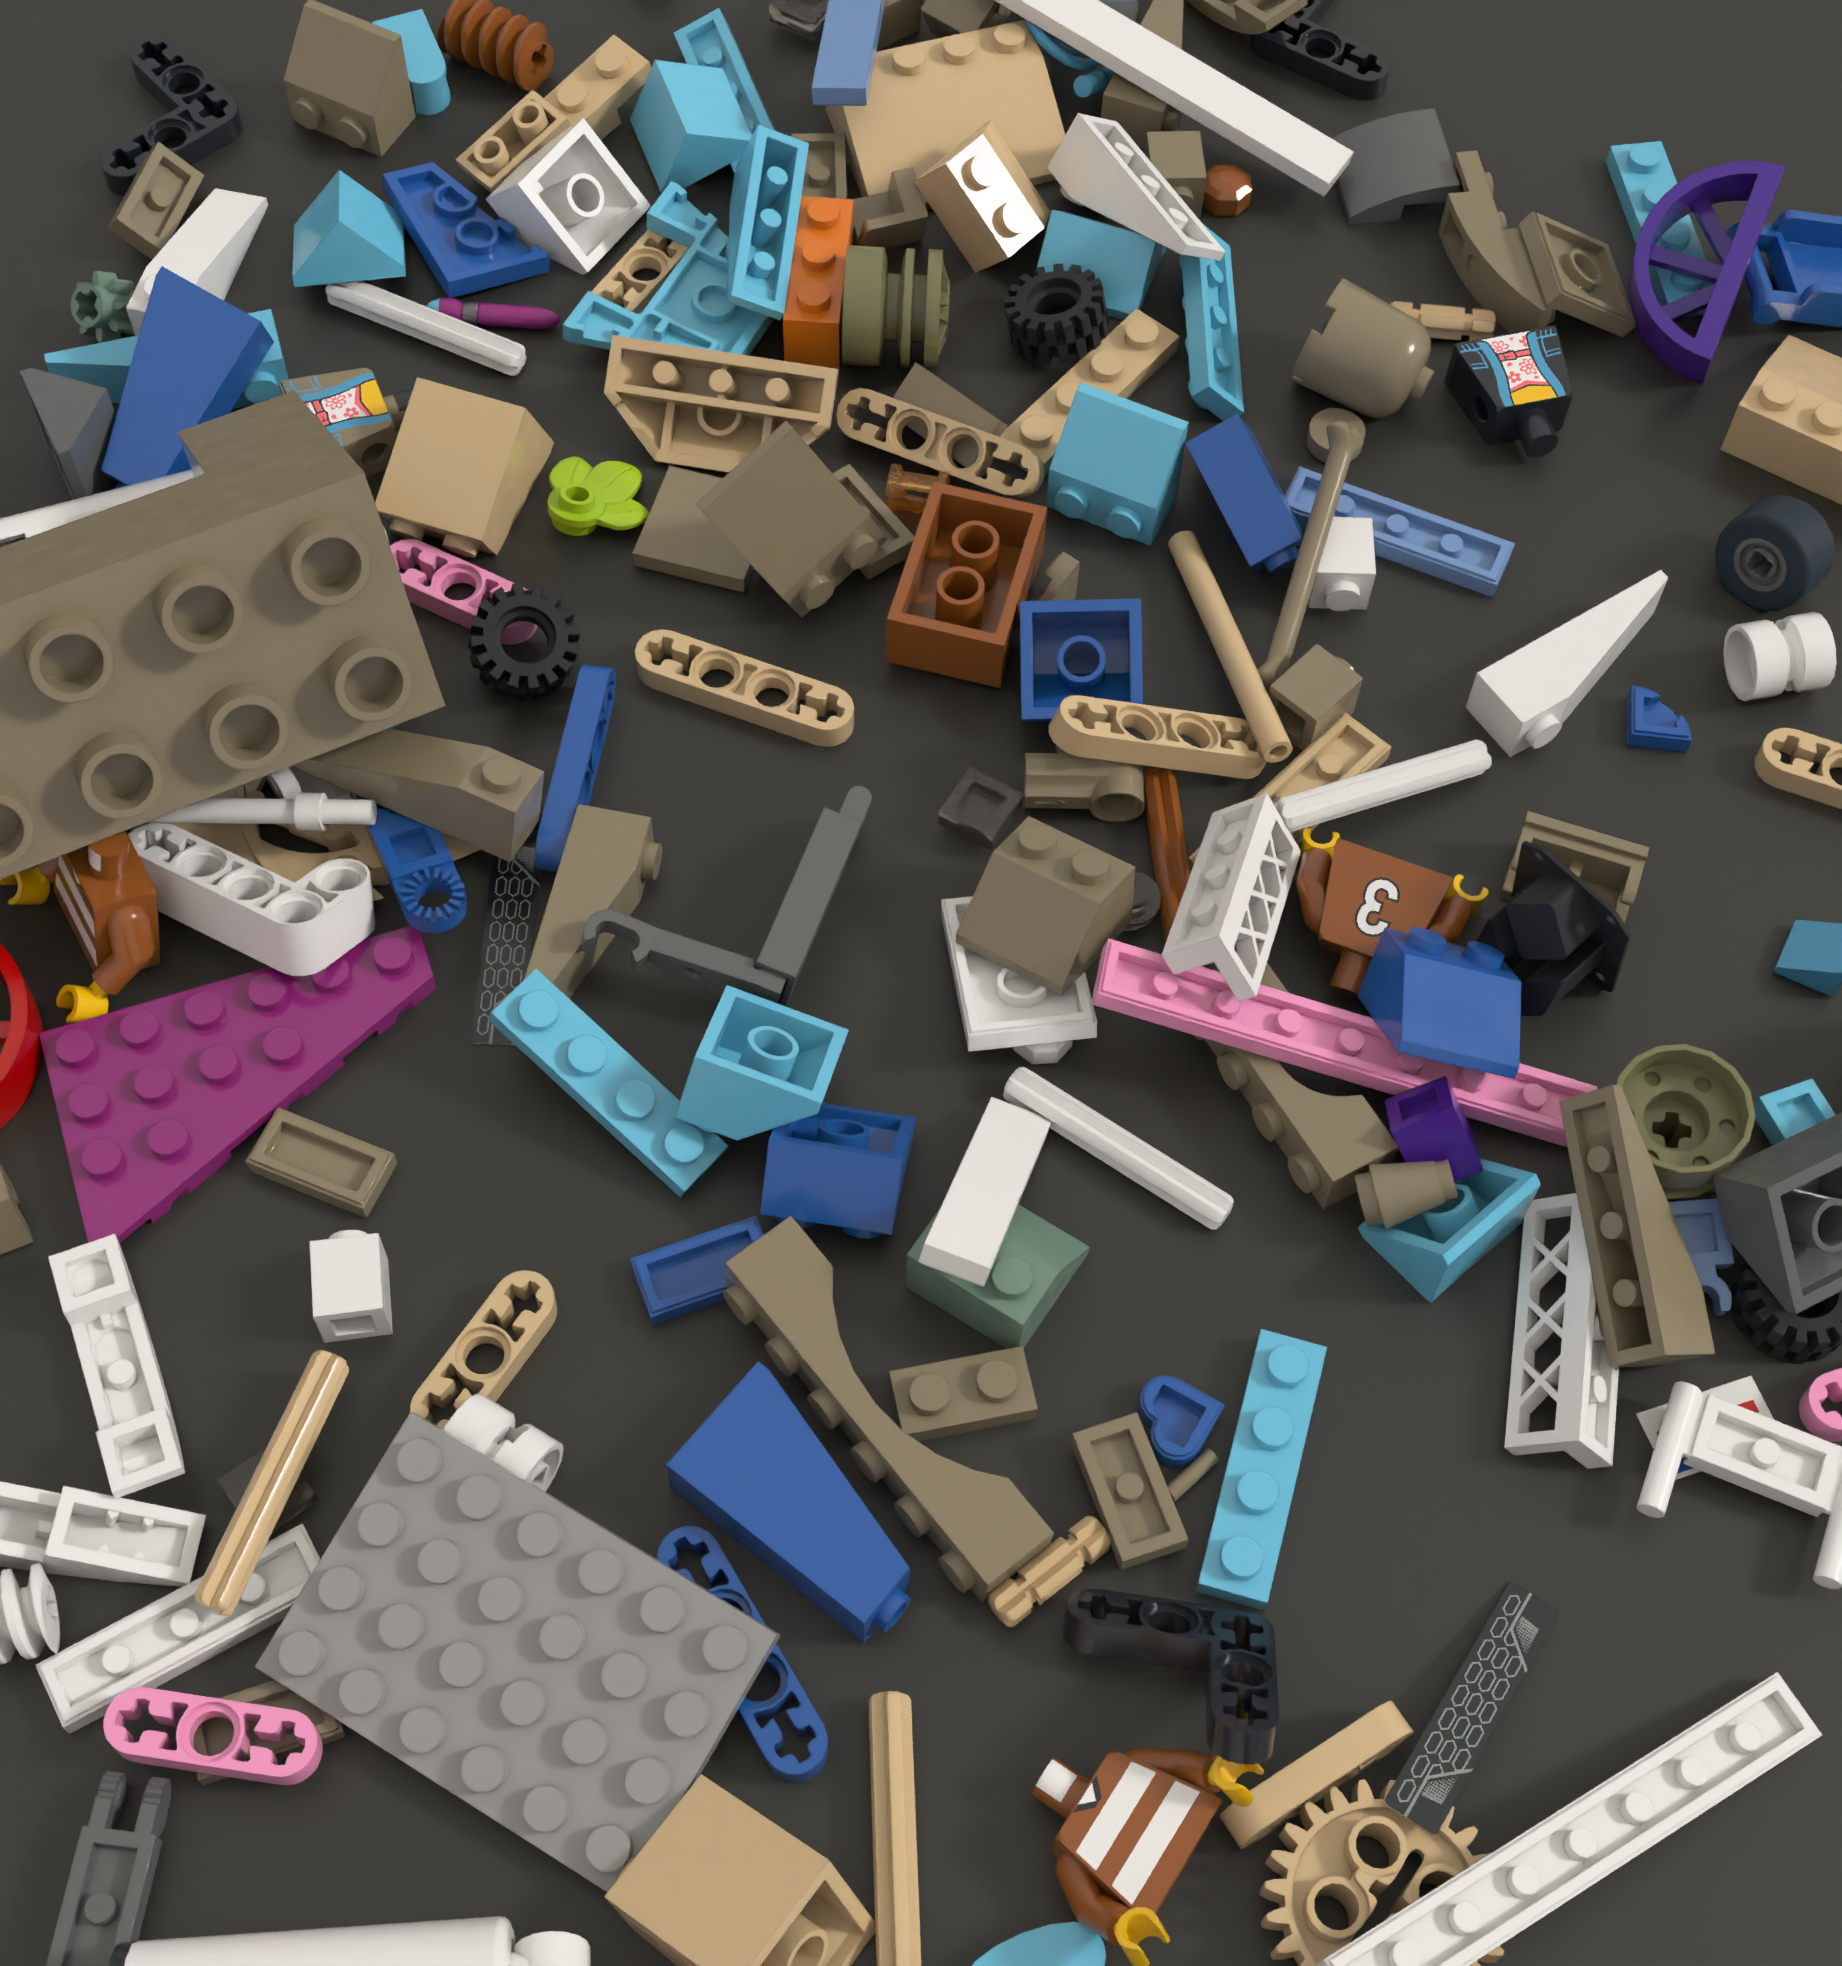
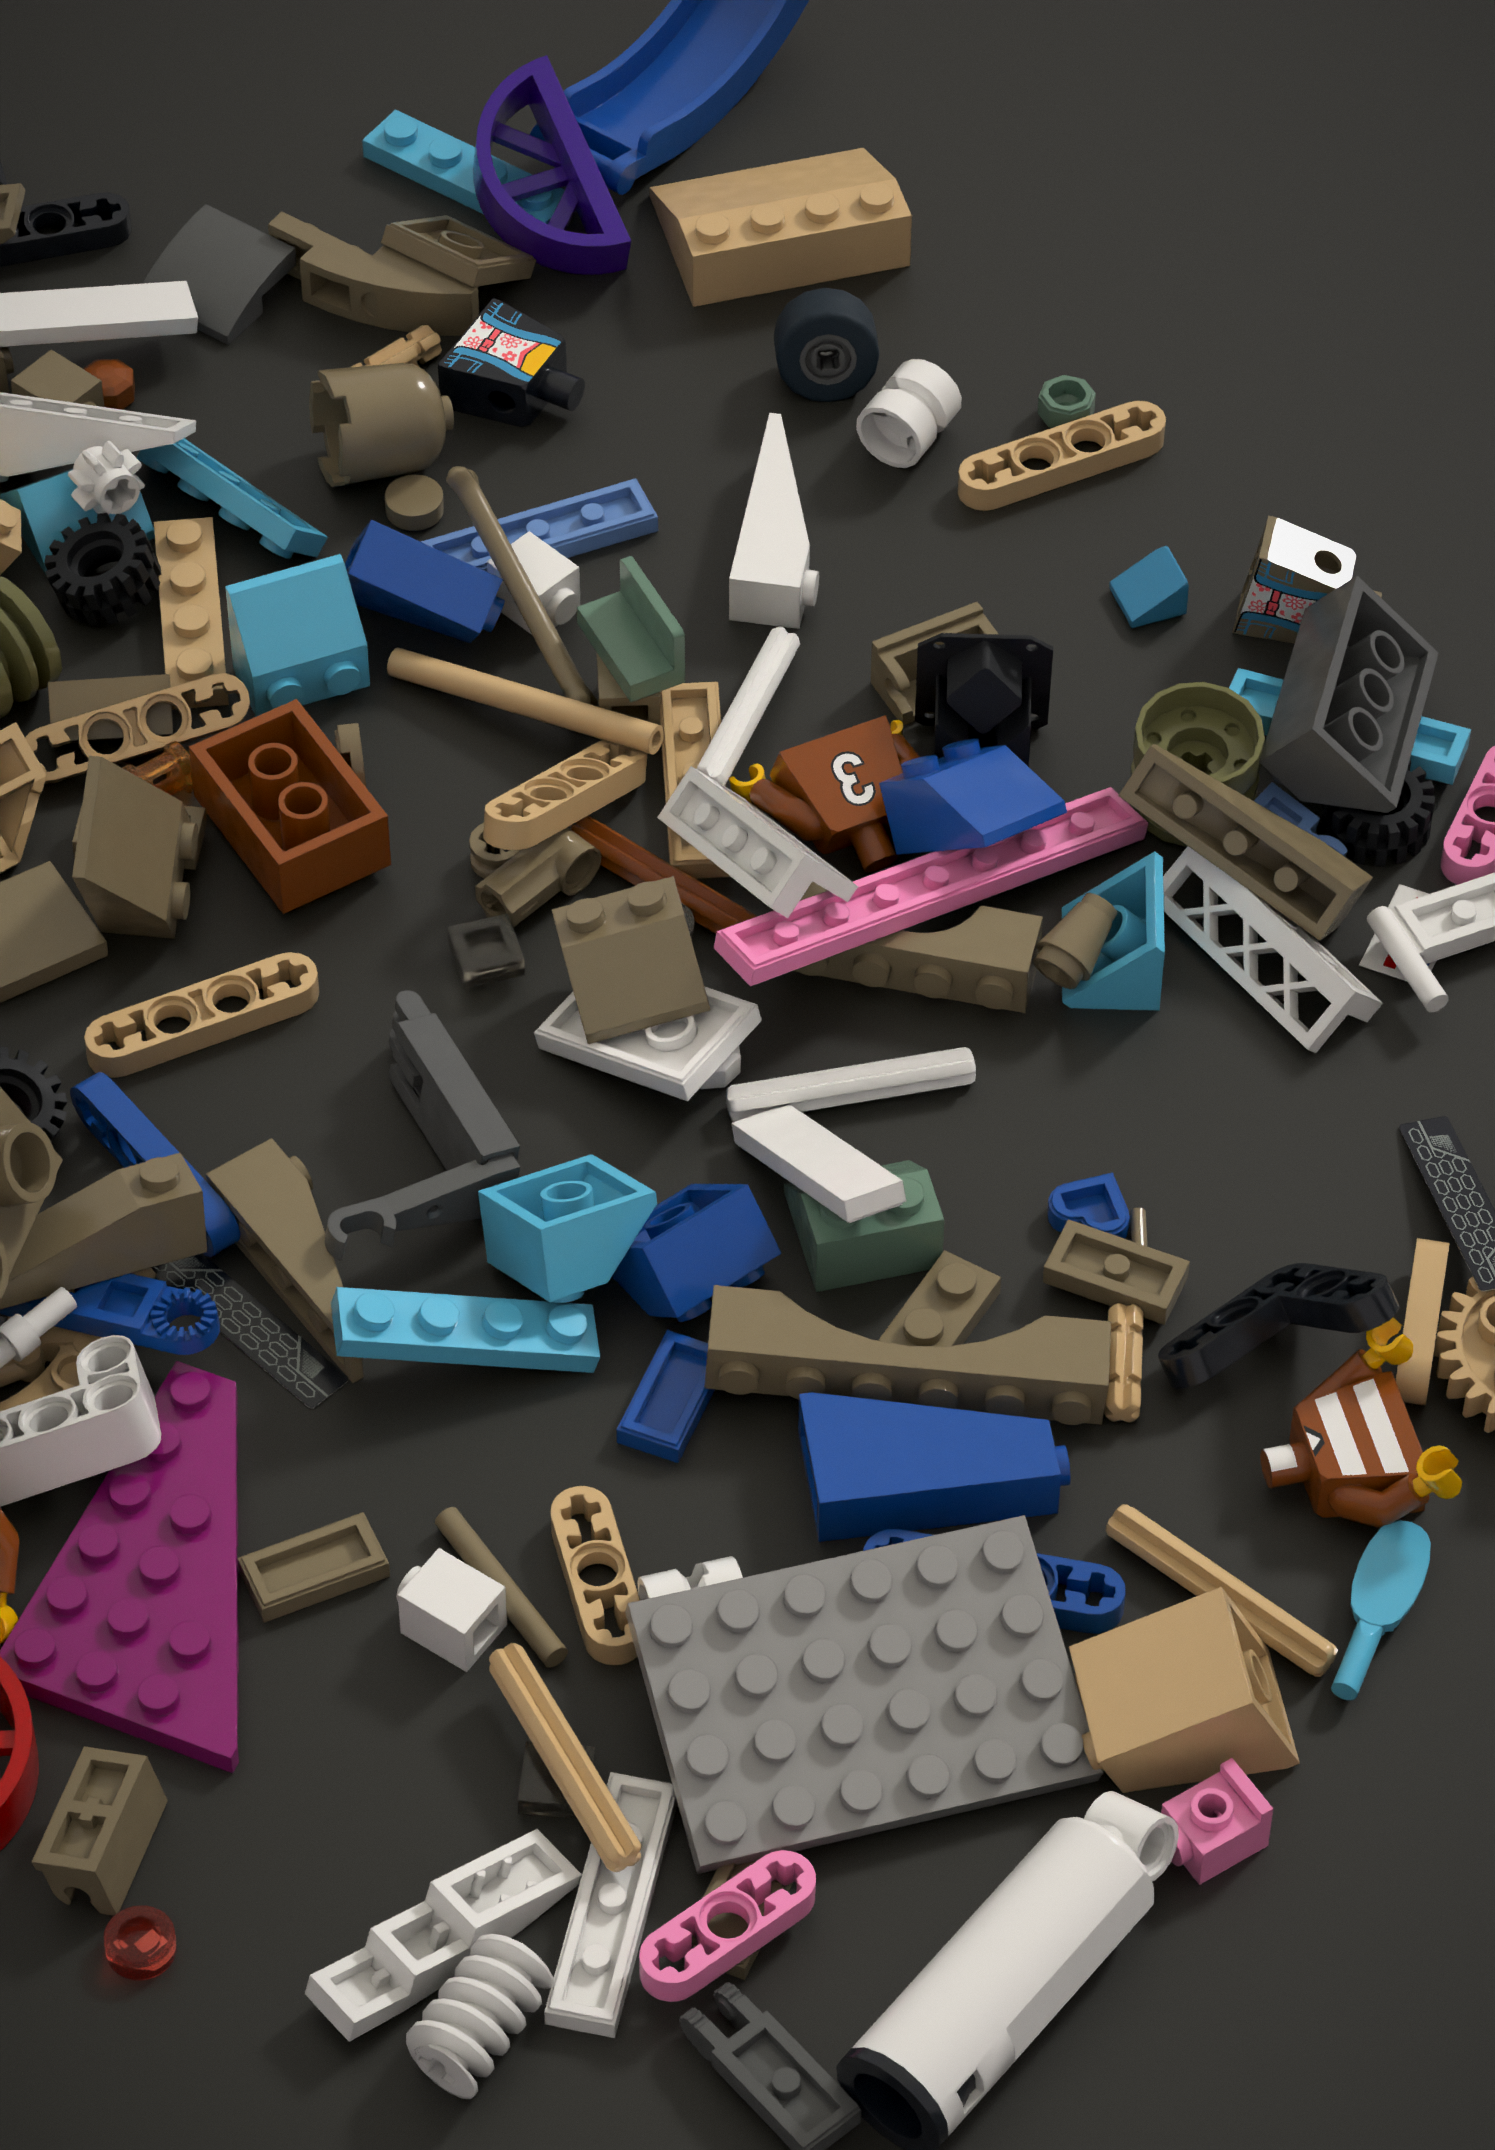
camera: 45 degrees left, 10 degrees down
(118, 1366) = (350, 1806): white slope -> none
(415, 1302) = (518, 1607): none -> dark tan bar
(1079, 650) = (439, 788): blue slope -> none
(1112, 246) = (106, 479): none -> white gear
(1261, 1470) = (1178, 1191): medium azure plate -> none
(1339, 660) = (635, 635): none -> sand green panel
(1434, 1128) = (1047, 884): dark purple panel -> none
(1654, 723) = (870, 529): blue tile -> none

